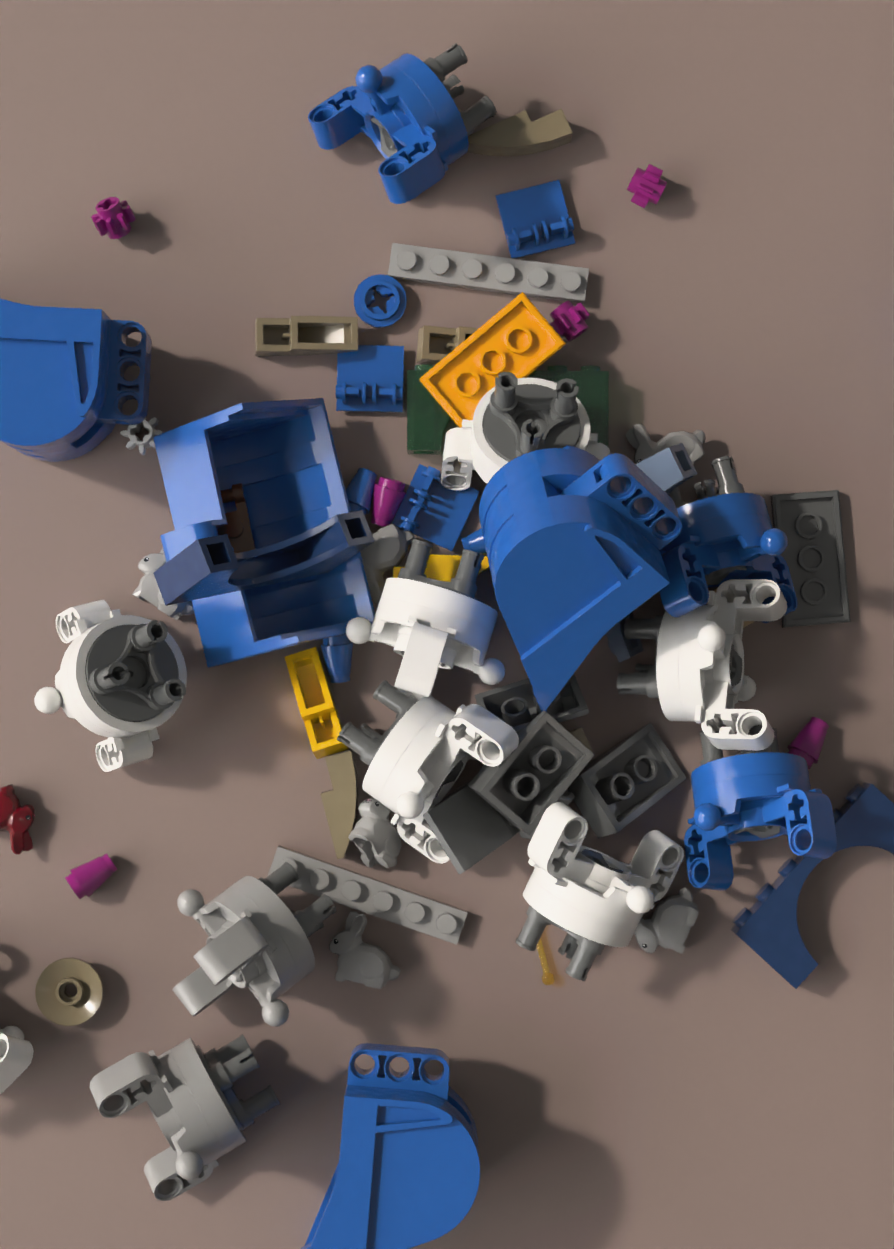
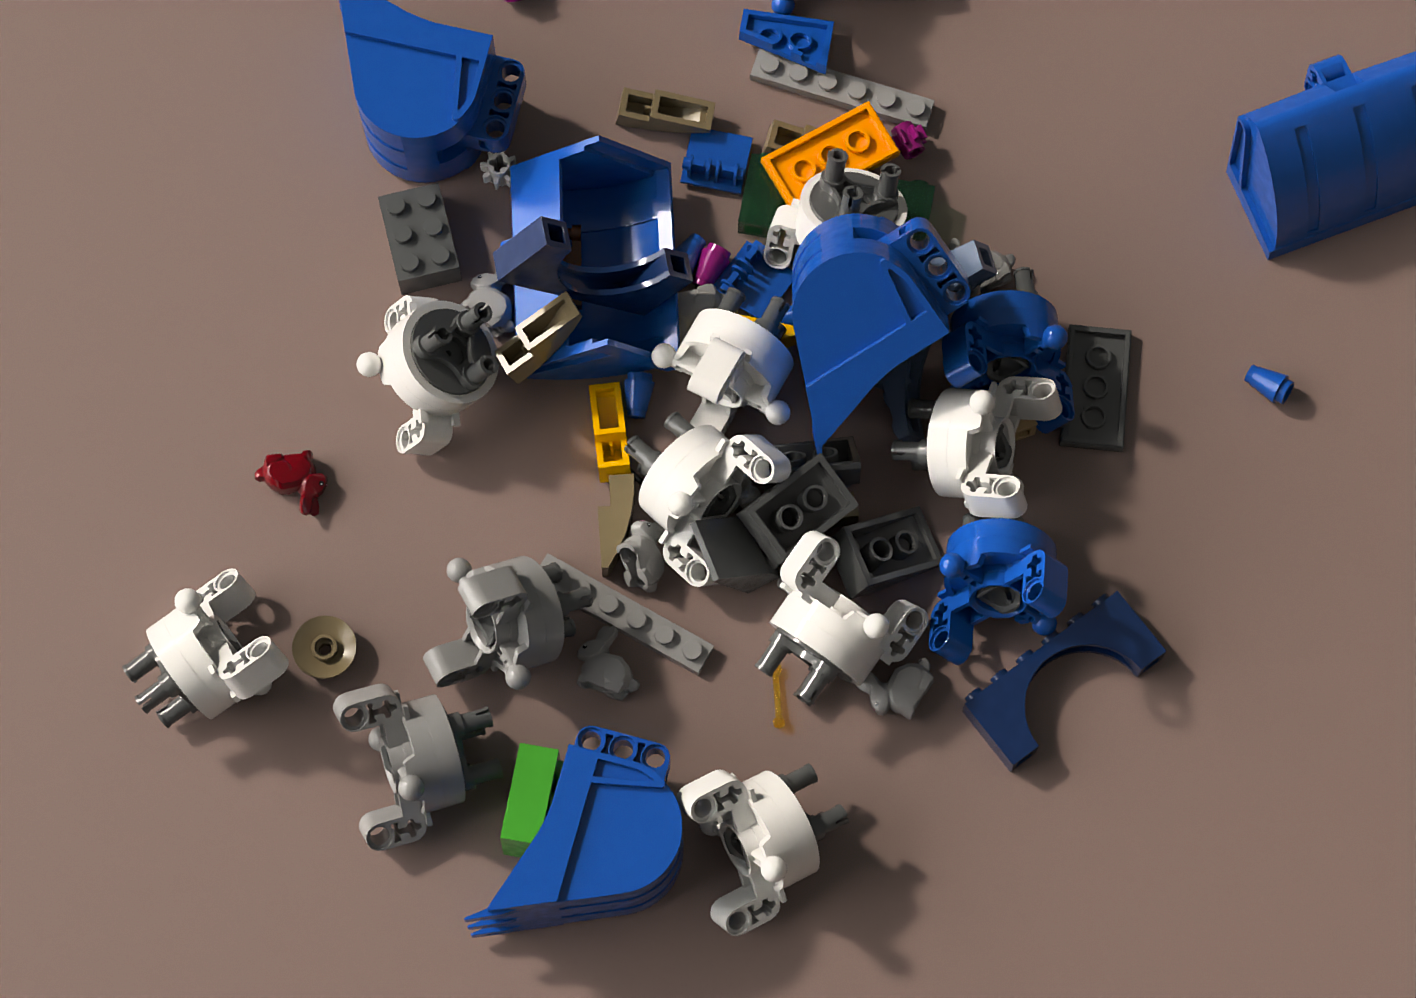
camera: 15 degrees right, 15 degrees down
(73, 528) = (420, 238): none -> dark grey brick
(90, 875) = (367, 547): magenta cone -> none
(222, 637) = (539, 337): none -> dark tan slope
(315, 1122) = (529, 797): none -> bright green brick
(385, 287) = (747, 86): blue gear -> none
(422, 224) = (788, 36): none -> blue wing
(535, 219) = (893, 51): blue hinge -> none
(560, 1120) = (763, 835): none -> white piece
(646, 185) = (999, 38): magenta gear -> none
(810, 741) = (1070, 545): magenta cone -> none

